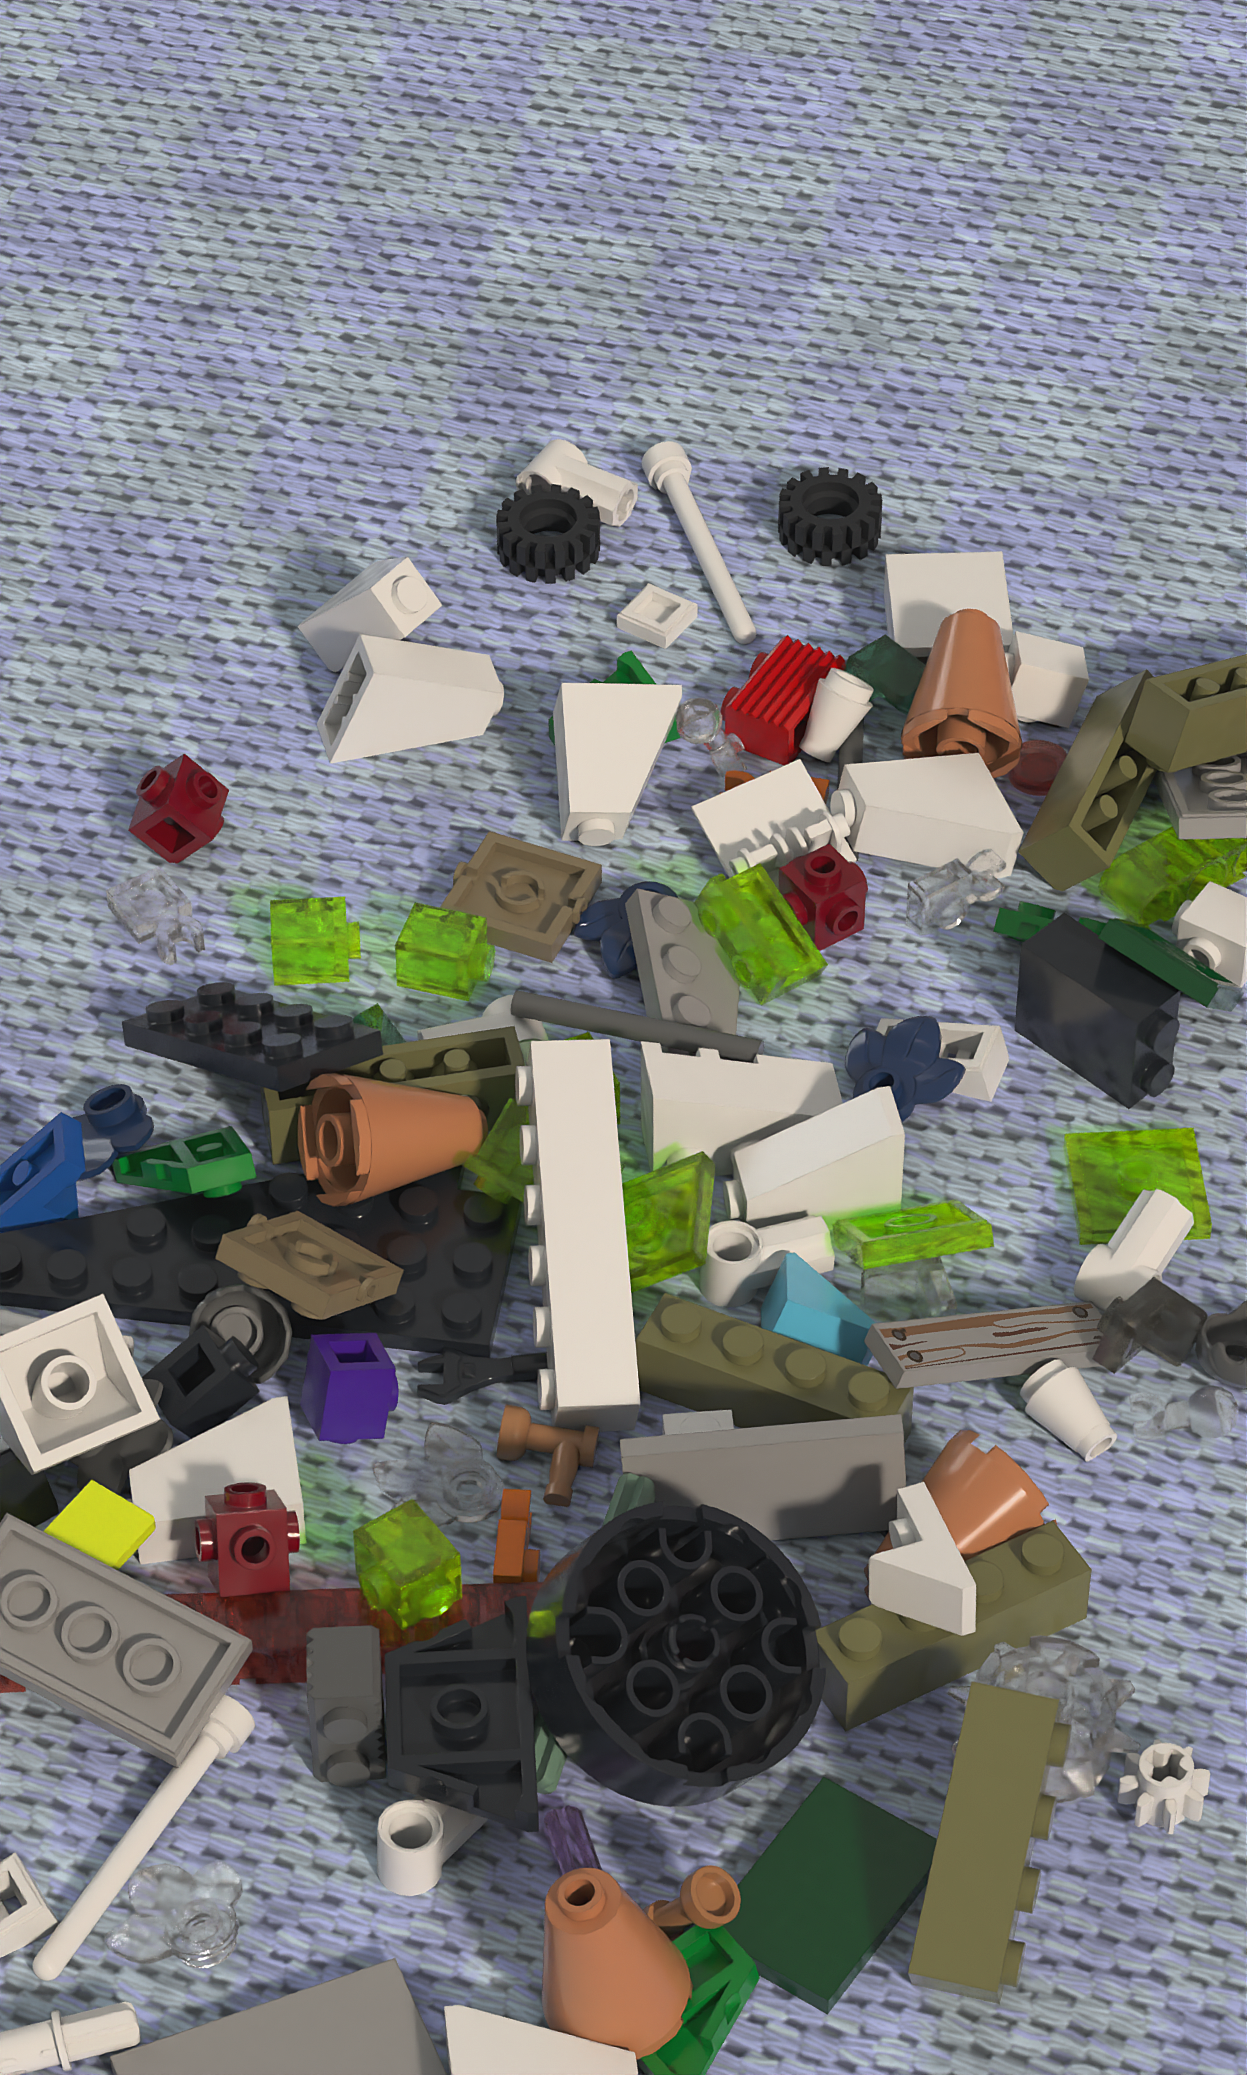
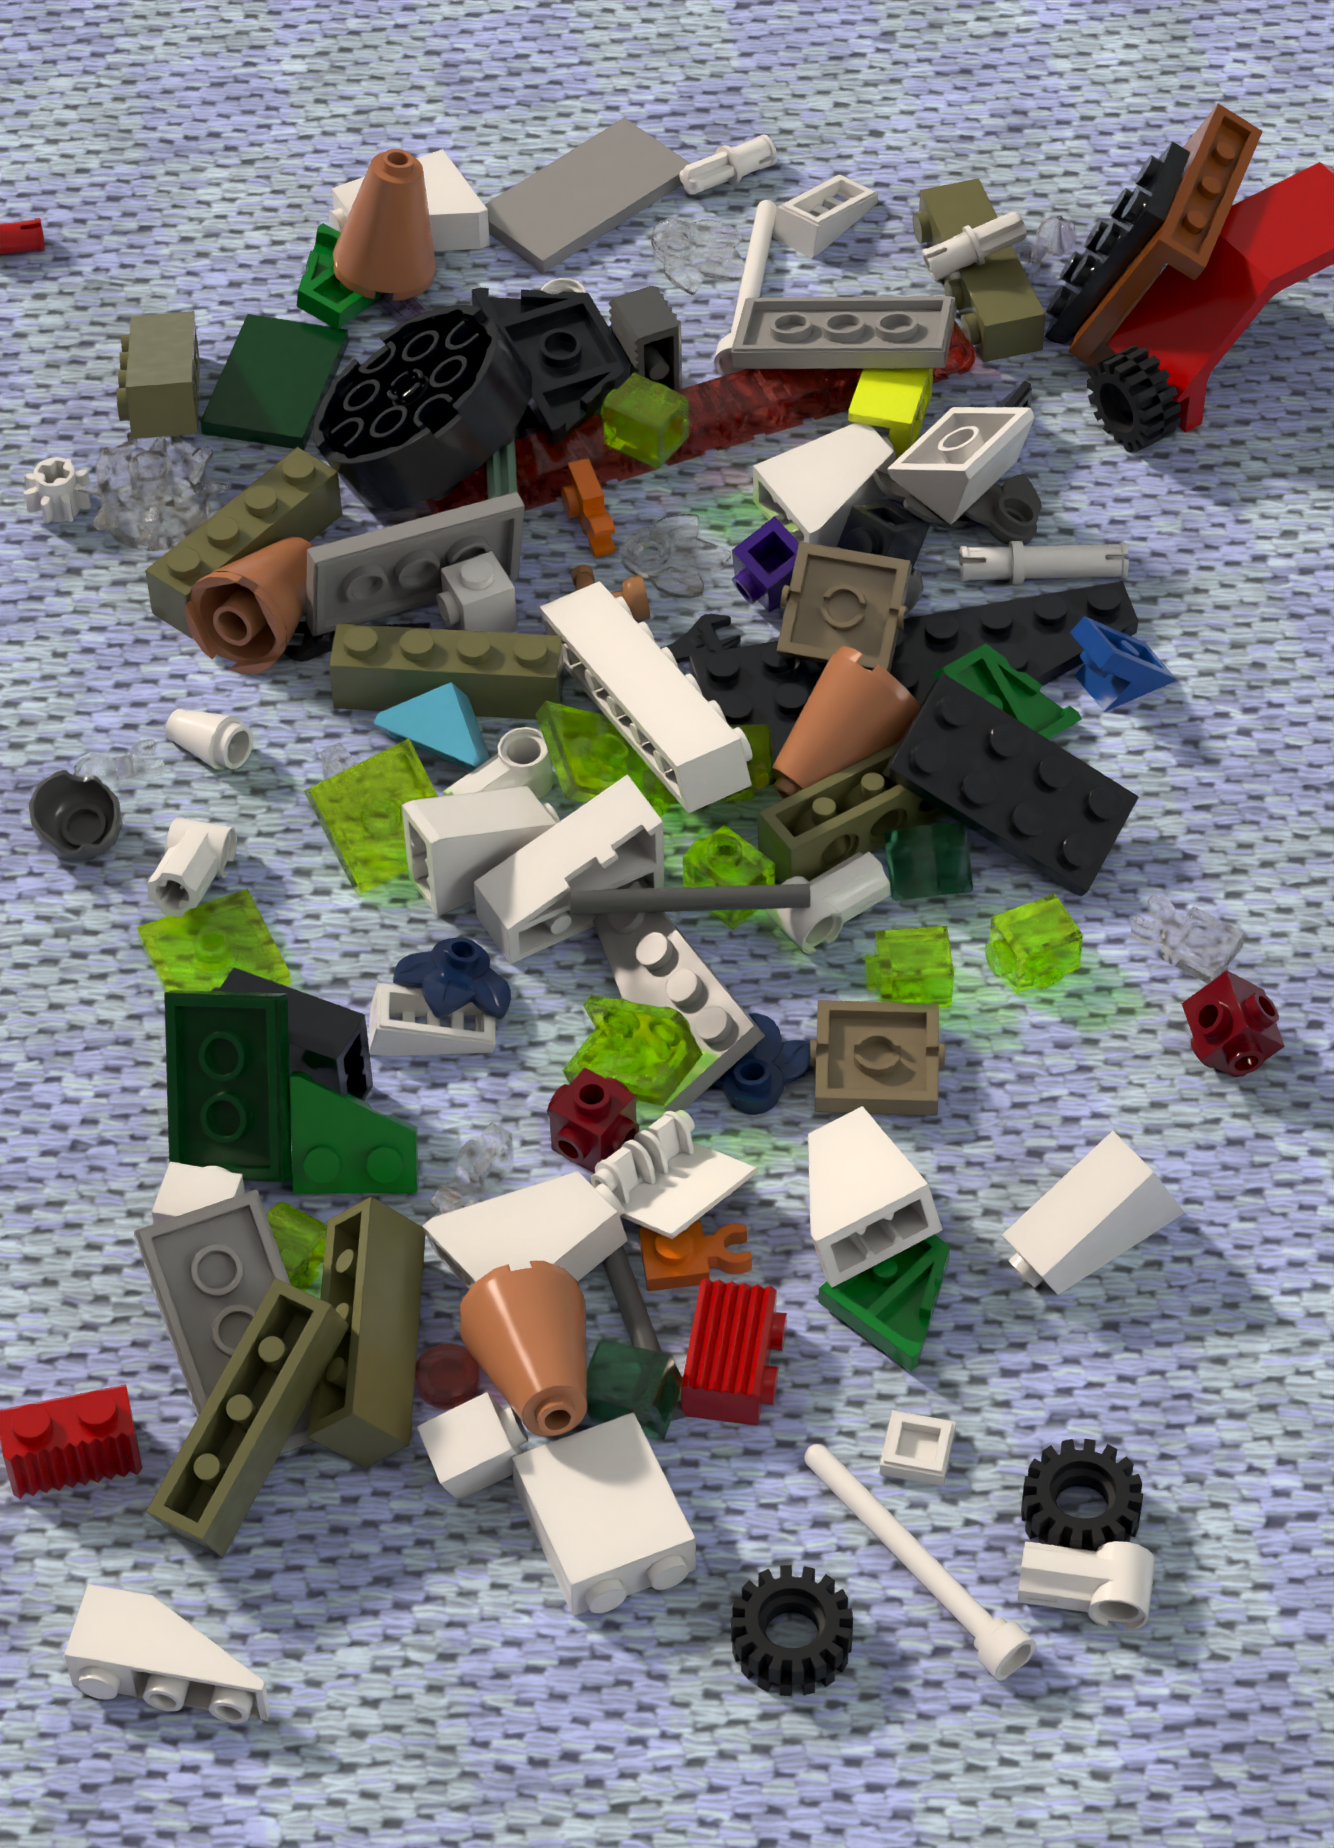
camera: 160 degrees right, 5 degrees up
(112, 1124) = (1097, 729): dark blue plate -> none
(247, 1540) = (759, 424): dark red brick -> none
(380, 602) = (1180, 1282): white slope -> none
(701, 723) = (787, 1250): clear arm -> none
(706, 1899) = (342, 301): medium nougat piece -> none
(835, 712) = (649, 1327): white cone -> none
(924, 1569) = (261, 488): white slope -> none
(985, 1344) = (280, 734): light grey tile -> none
(1150, 1319) = (169, 793): clear smoke bracket -> none

